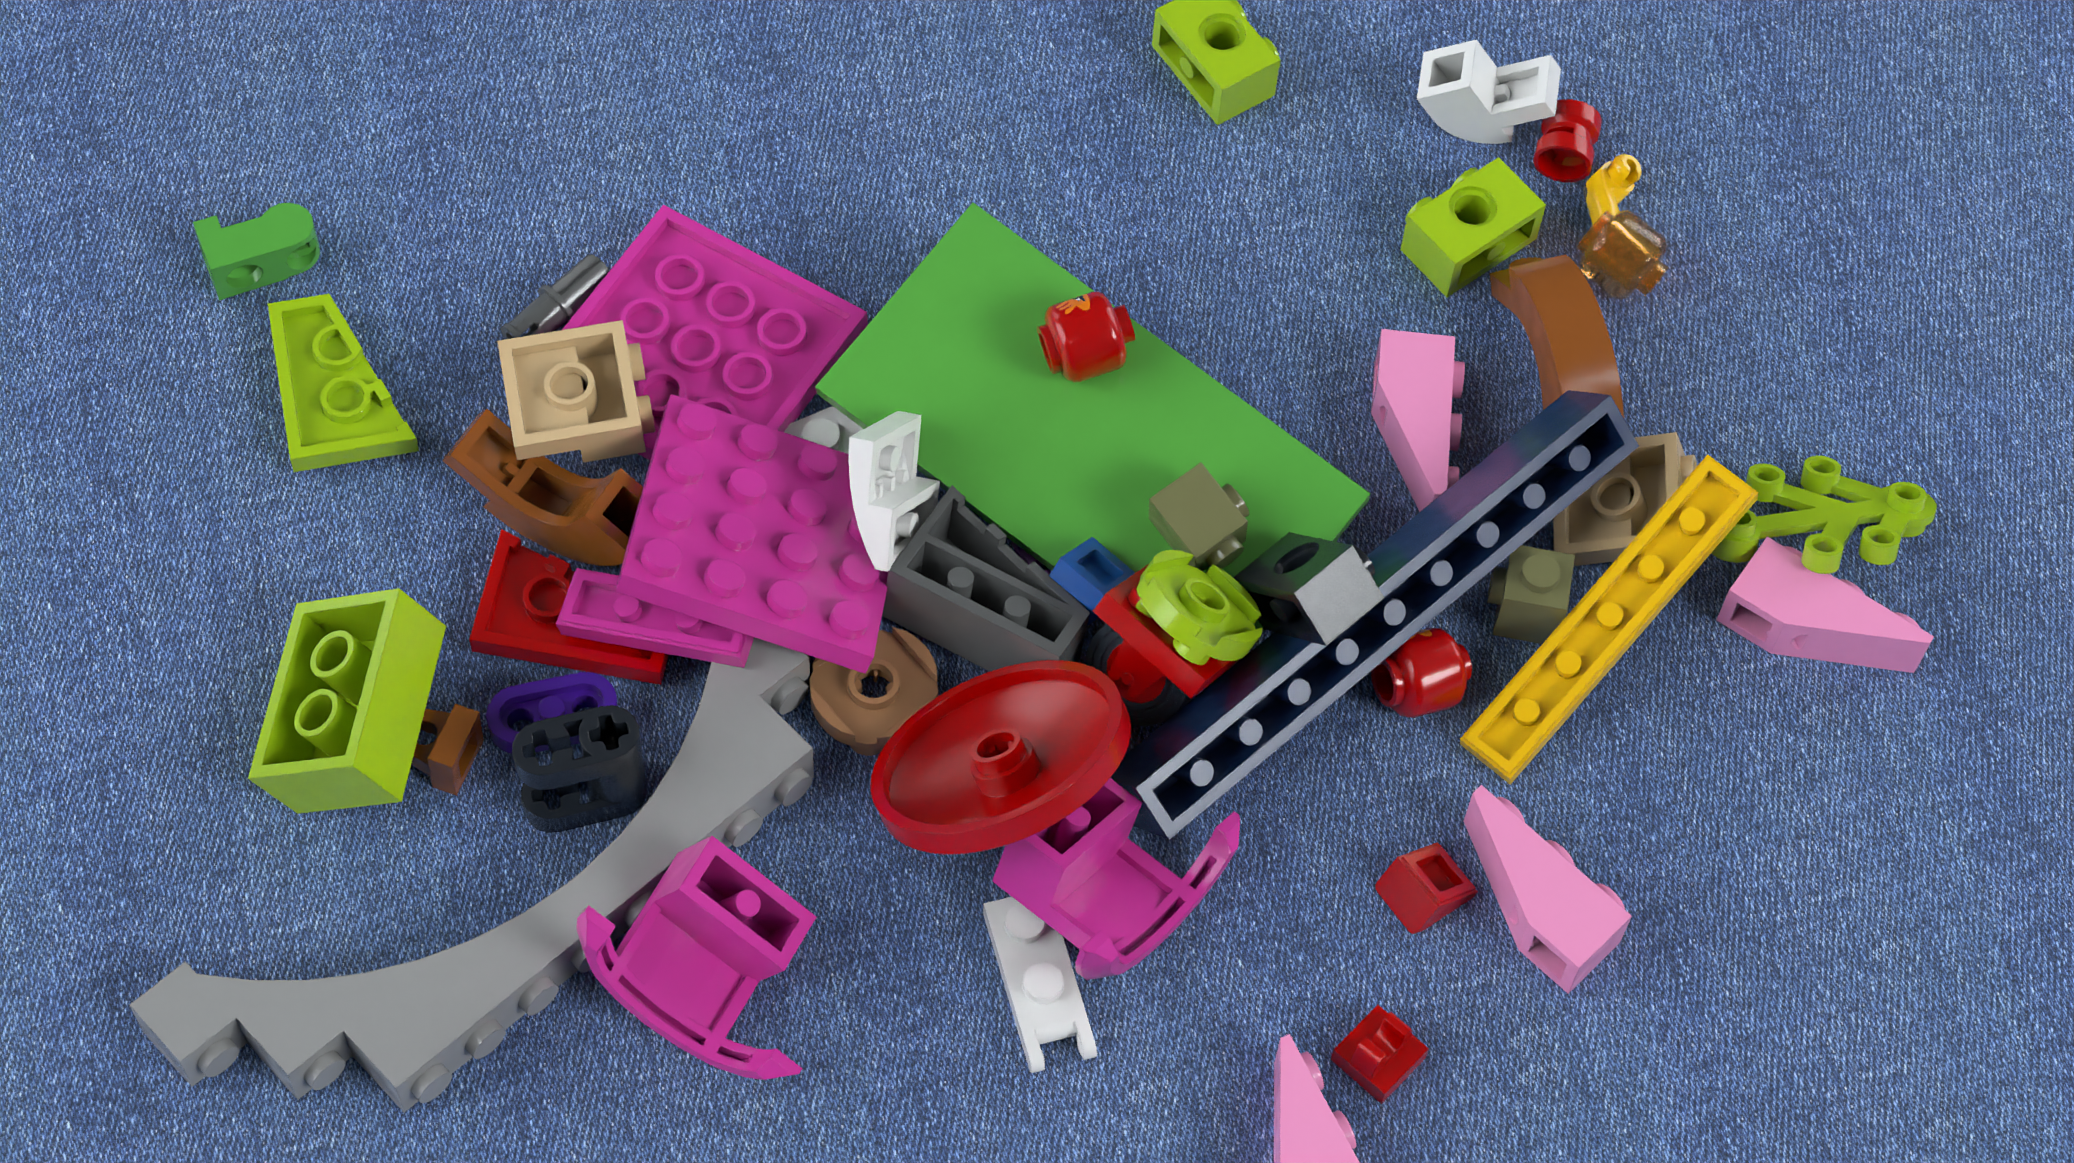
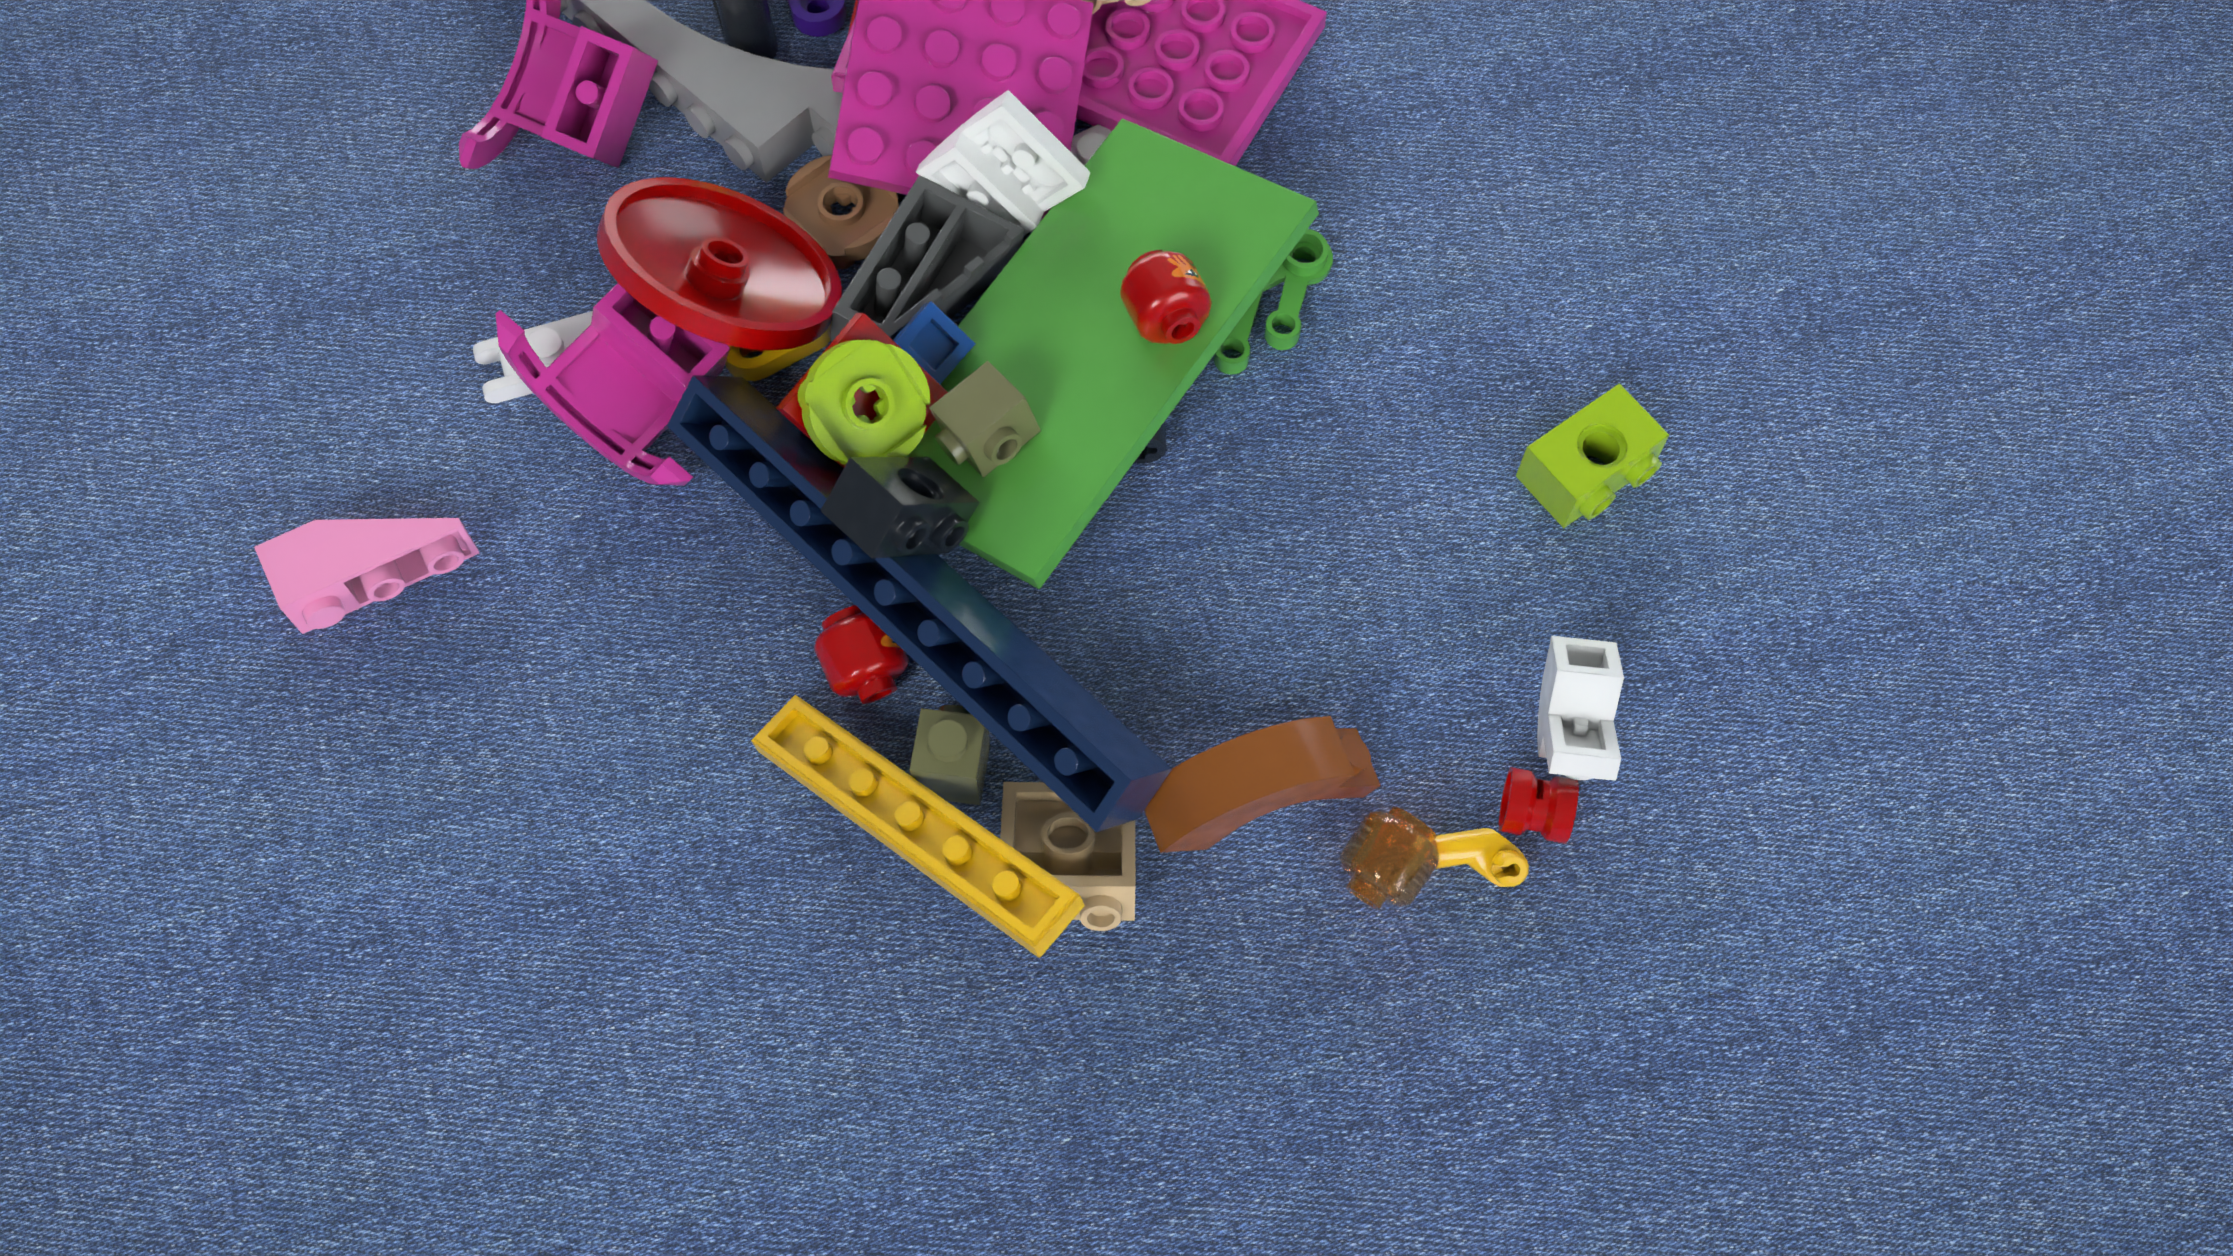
camera: 90 degrees right, 5 degrees up
(1380, 1053) = (470, 626): red tile -> none
(1414, 406) = (1175, 647): bright pink slope -> none
(1424, 887) = (644, 671): red slope -> none
(1456, 253) = (1414, 739): lime brick -> none
(1548, 903) = (608, 766): bright pink slope -> none
(1817, 615) = (948, 1032): bright pink slope -> none
(1897, 510) = (1062, 1074): lime plant -> none

